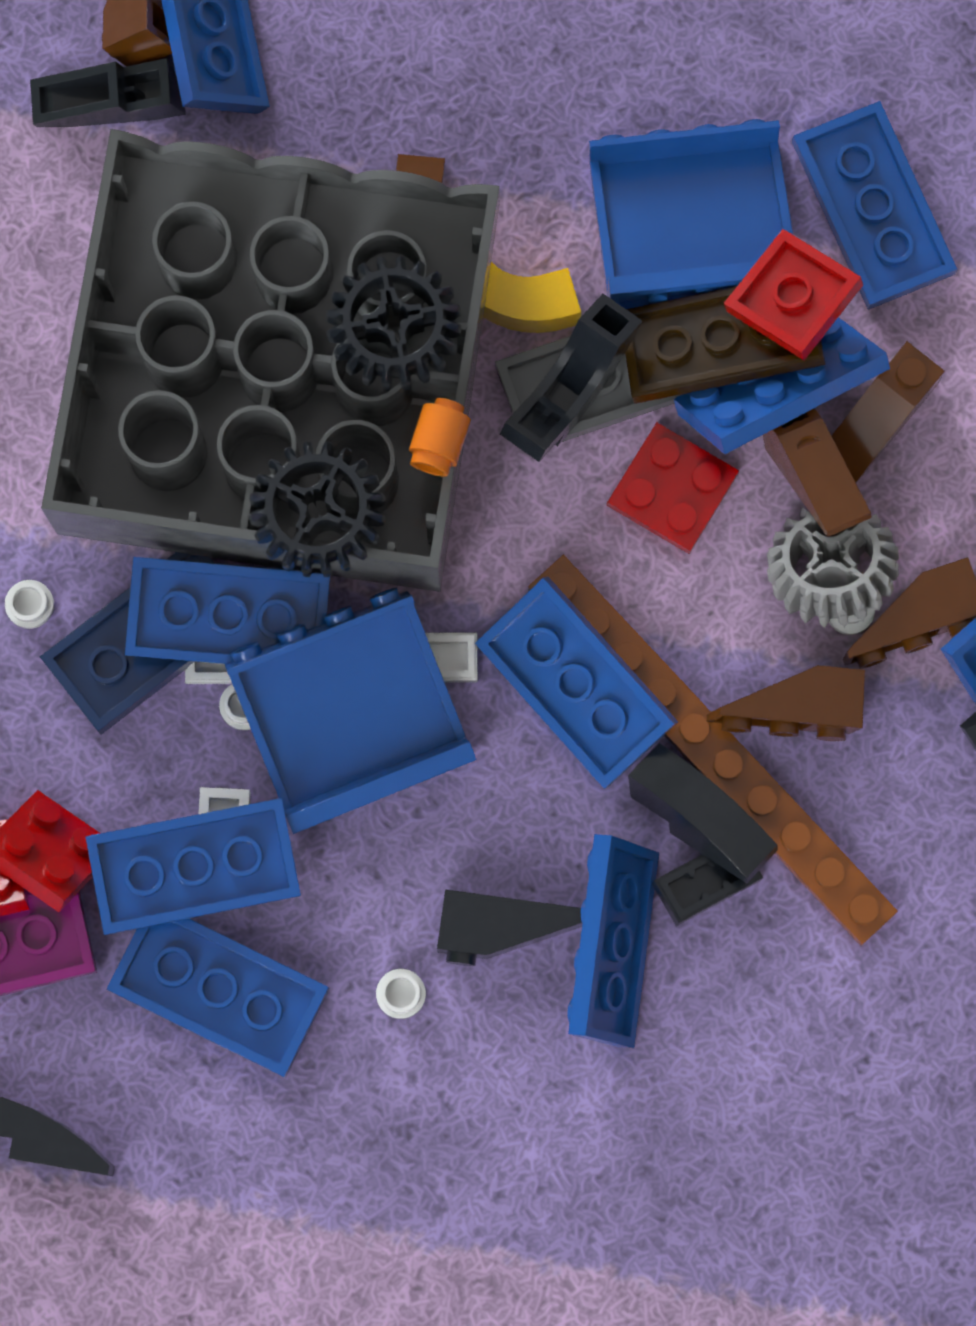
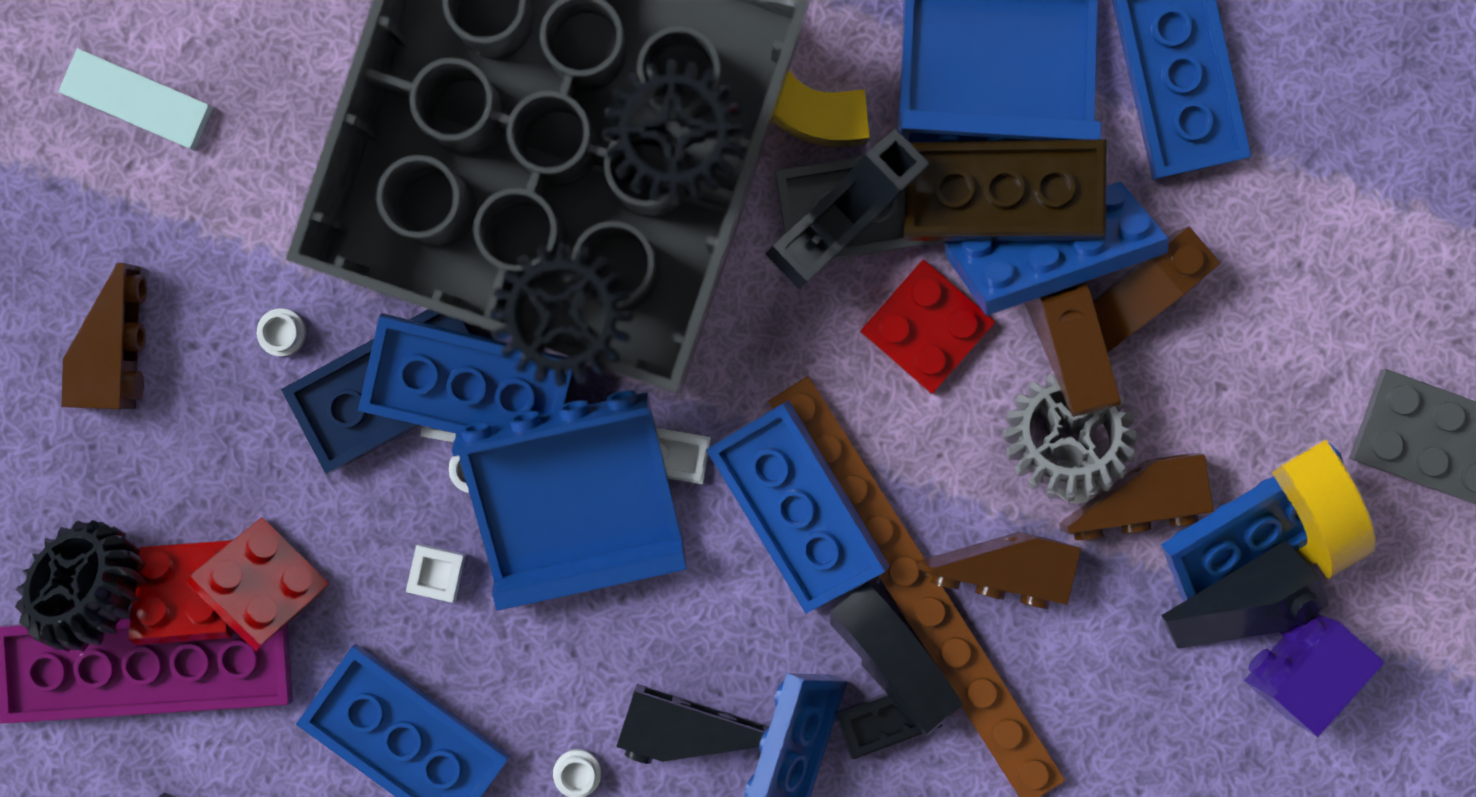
camera: 15 degrees right, 10 degrees up
(192, 866) = (393, 626): blue plate -> none
(439, 437) = (699, 260): orange brick -> none
(793, 294) = (1088, 164): red plate -> none

